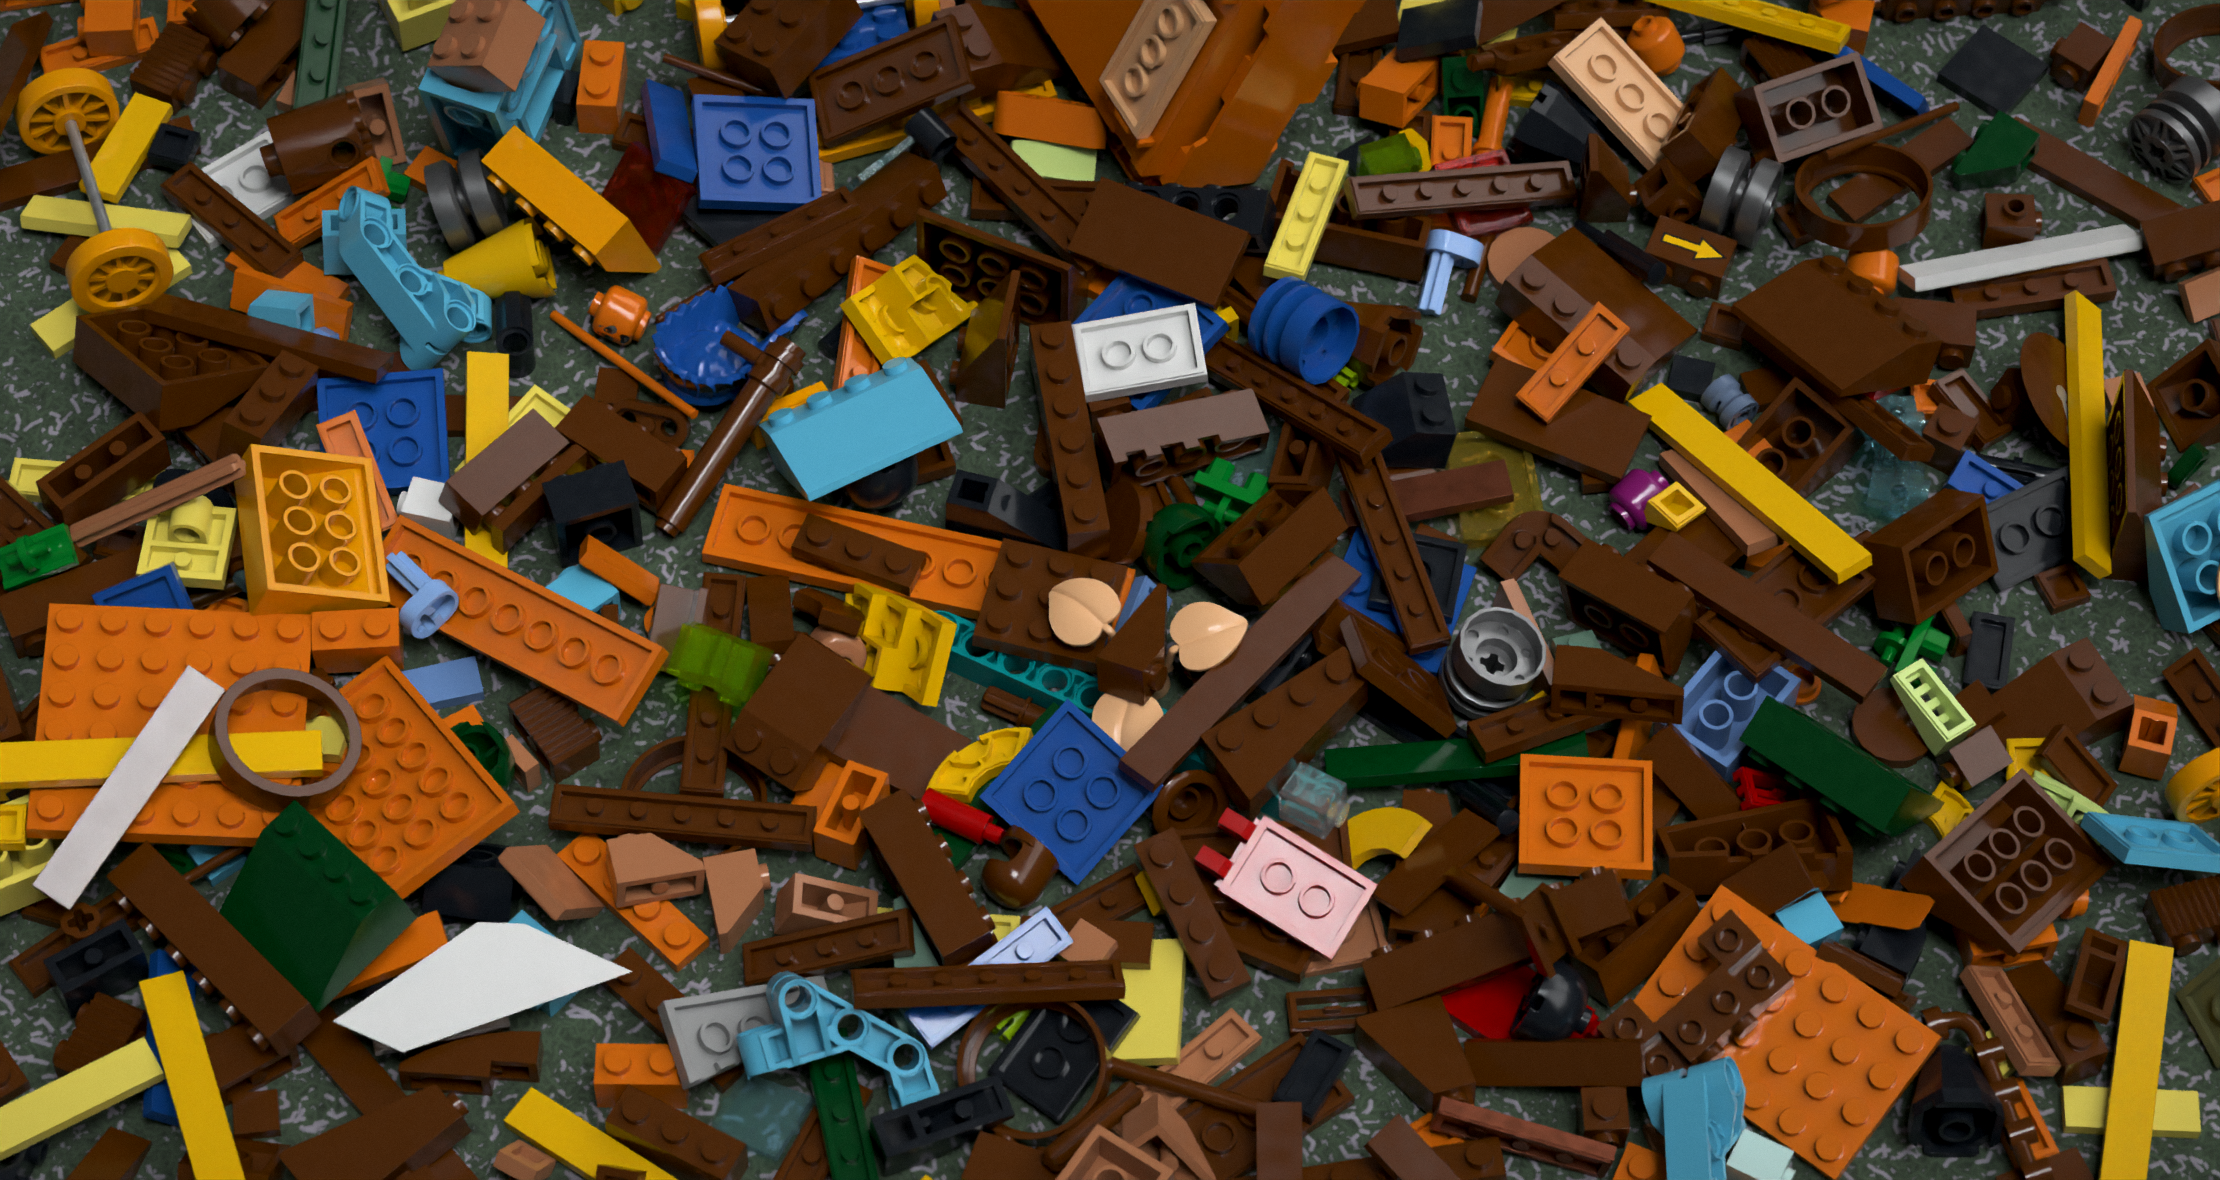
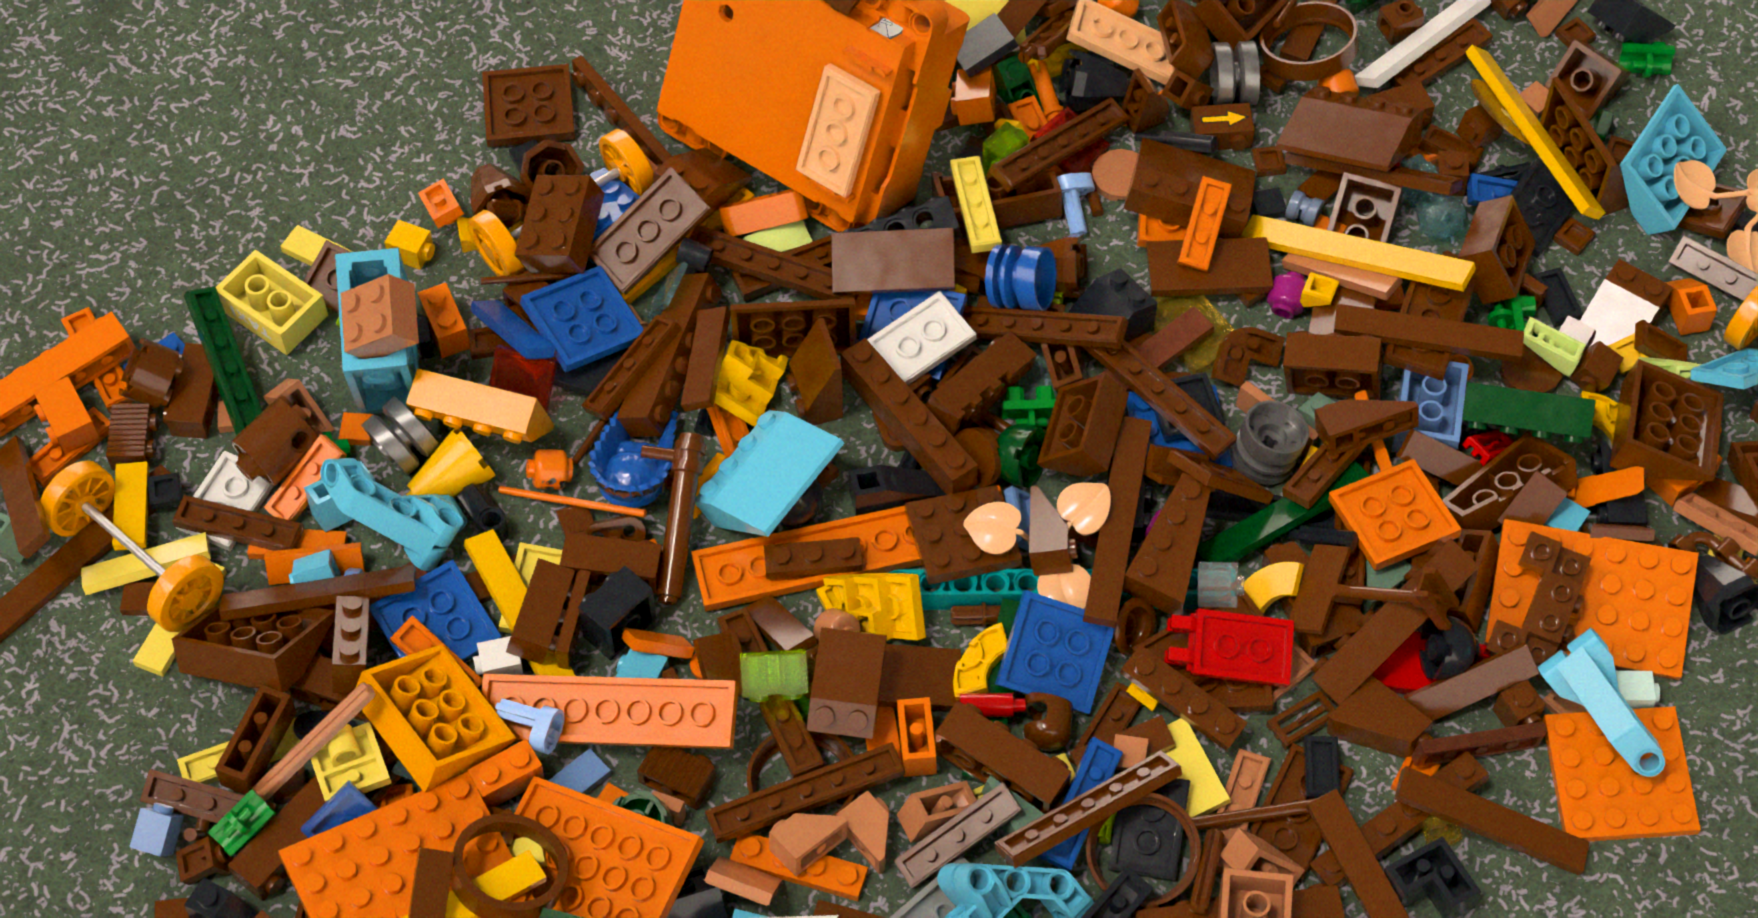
camera: 25 degrees left, 0 degrees up
(830, 611) = (820, 605): reddish brown tile -> none
(863, 264) = (706, 358): none -> reddish brown tile

